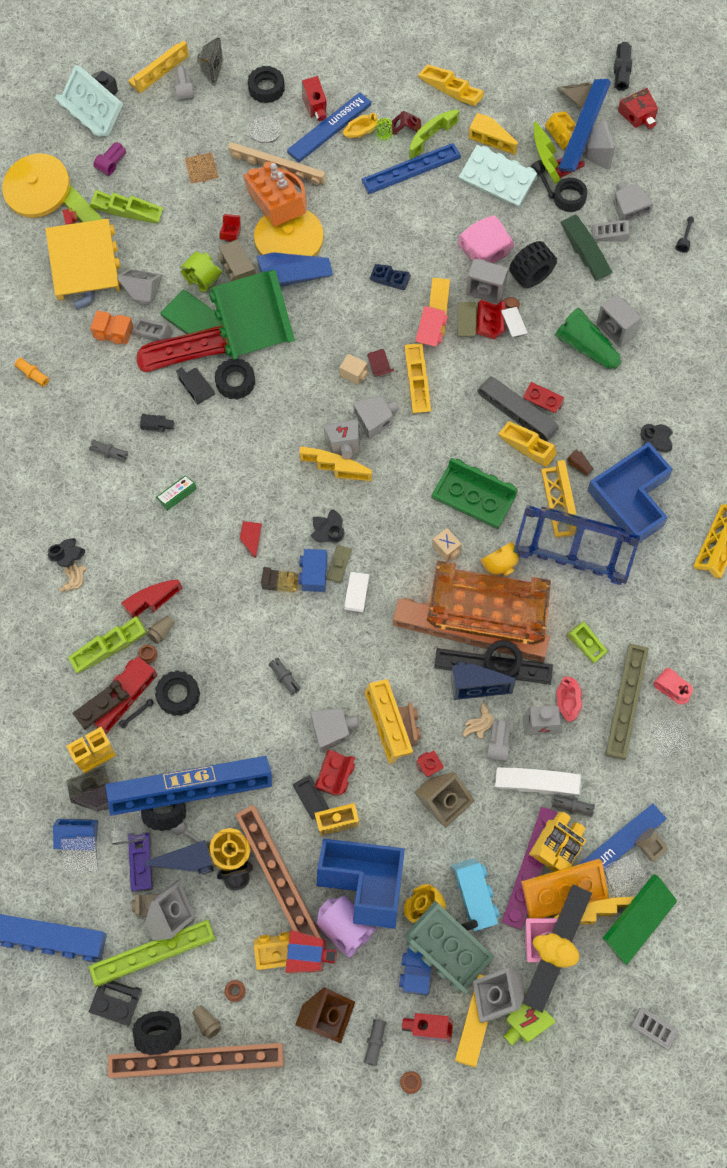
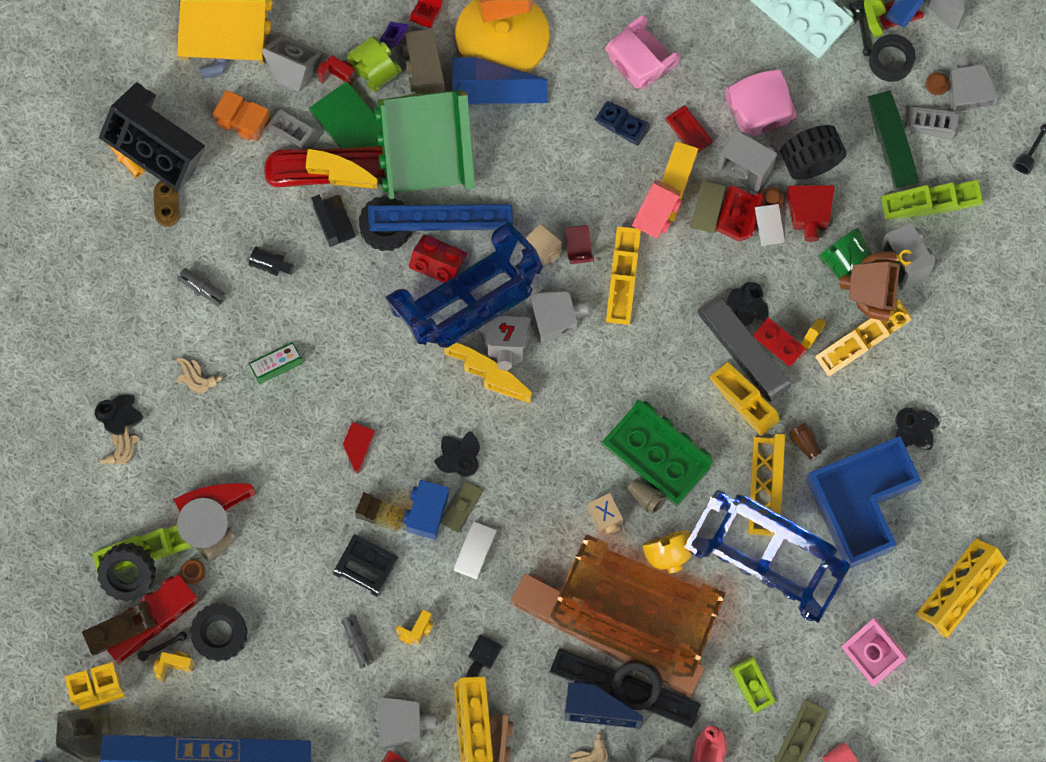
camera: 10 degrees right, 5 degrees up
(48, 353) = (151, 138): none -> black hinge
(69, 397) = (164, 202): none -> pearl gold plate
(86, 673) = (113, 585): none -> black tyre
(116, 515) = (193, 377): none -> tan piece
(147, 614) = (202, 523): none -> light grey piece
(151, 720) = (178, 660): none -> yellow bracket
(174, 281) = (340, 69): none -> red bracket
(193, 346) = (340, 170): none -> yellow slope
(211, 248) = (393, 34): none -> dark purple slope
(274, 365) = (438, 217): none -> blue tile
(278, 396) = (436, 259): none -> red bracket
(278, 614) = (370, 558): none -> black plate
(317, 423) = (460, 286): none -> clear blue windscreen
(330, 655) = (422, 627): none -> yellow bracket
(381, 665) = (483, 654): none -> black plate
(391, 229) = (640, 55): none -> bright pink piece
(436, 269) = (688, 129): none -> red tile
(474, 526) = (646, 496): none -> dark tan cone
(512, 377) = (748, 303): none -> black plate
(540, 305) = (810, 209): none -> red torso
(566, 386) = (813, 333): none -> yellow tile
(602, 382) = (860, 340): none -> yellow slope
(603, 340) = (875, 285): none -> dark orange torso
(606, 205) = (937, 83): none -> dark orange plate
(625, 282) = (932, 200): none -> lime slope
(671, 597) = (874, 652): none -> bright pink slope

